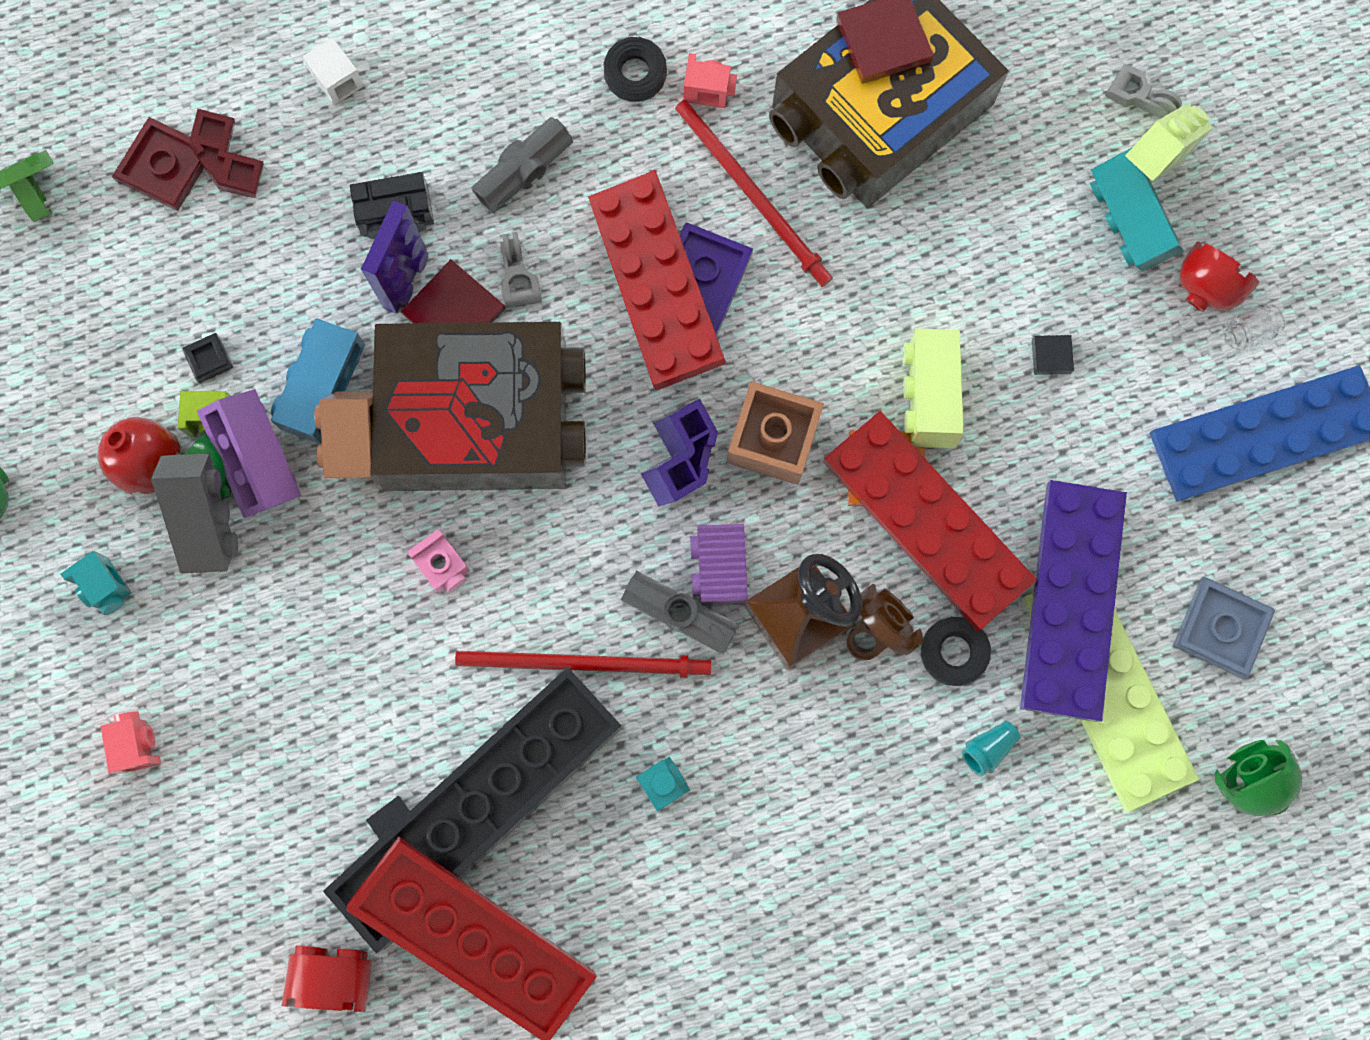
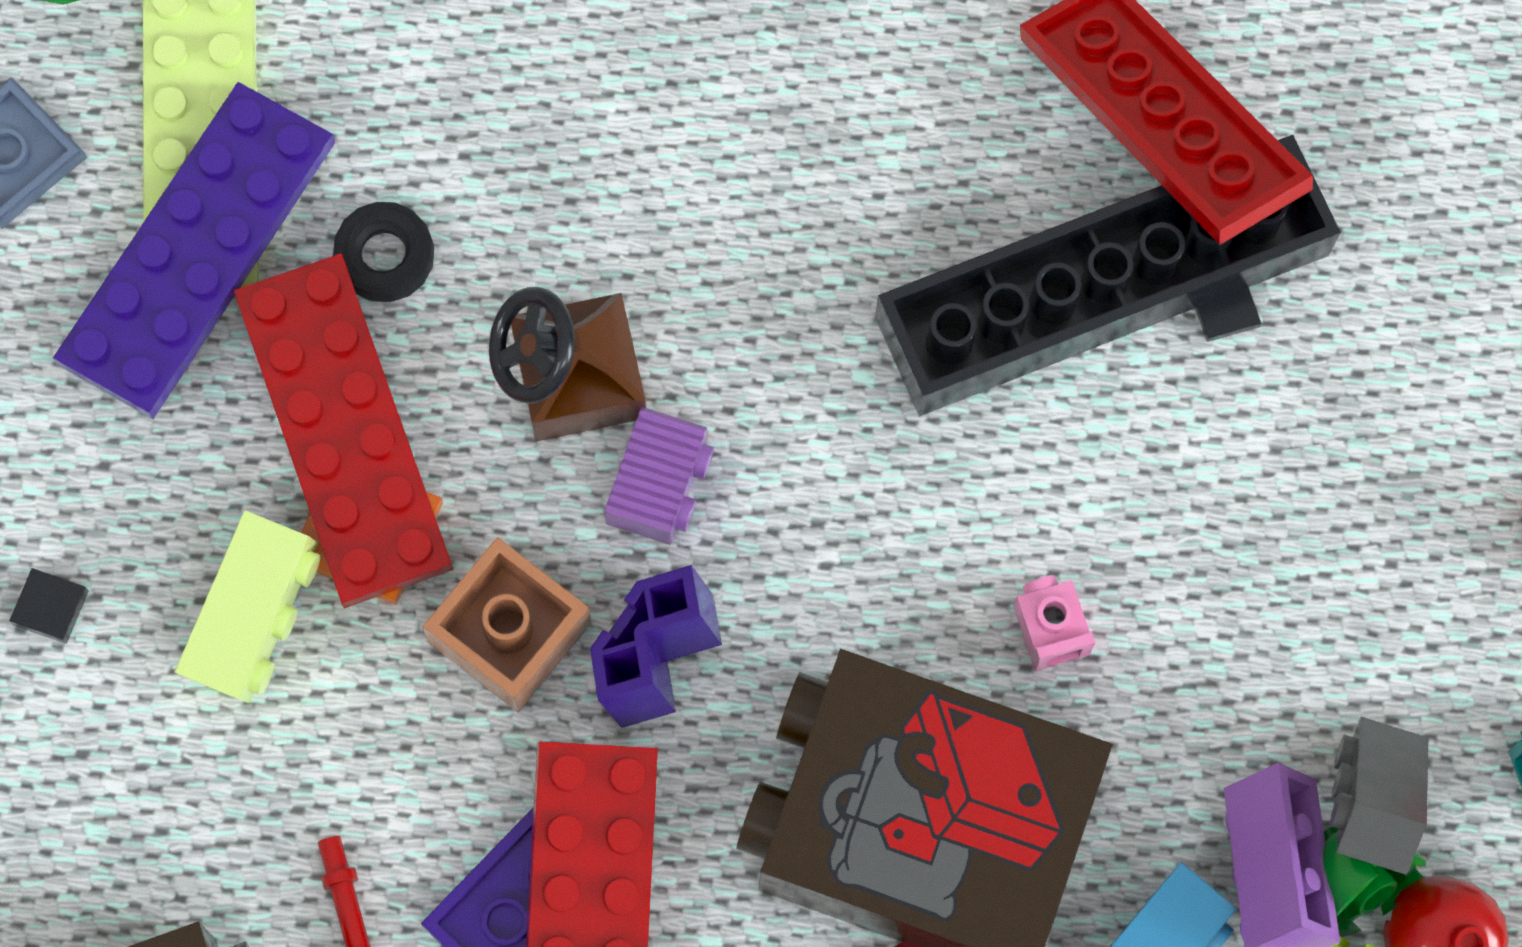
camera: 160 degrees left, 5 degrees down
(327, 981) = (1366, 134): red brick -> none
(345, 434) = (1125, 835): nougat brick -> none
(584, 663) = (764, 365): red bar -> none
(657, 599) = (765, 457): dark grey piece -> none
(663, 783) = (849, 220): teal brick -> none
(887, 621) = (461, 308): reddish brown tile -> none
(989, 749) = (395, 113): teal cone -> none

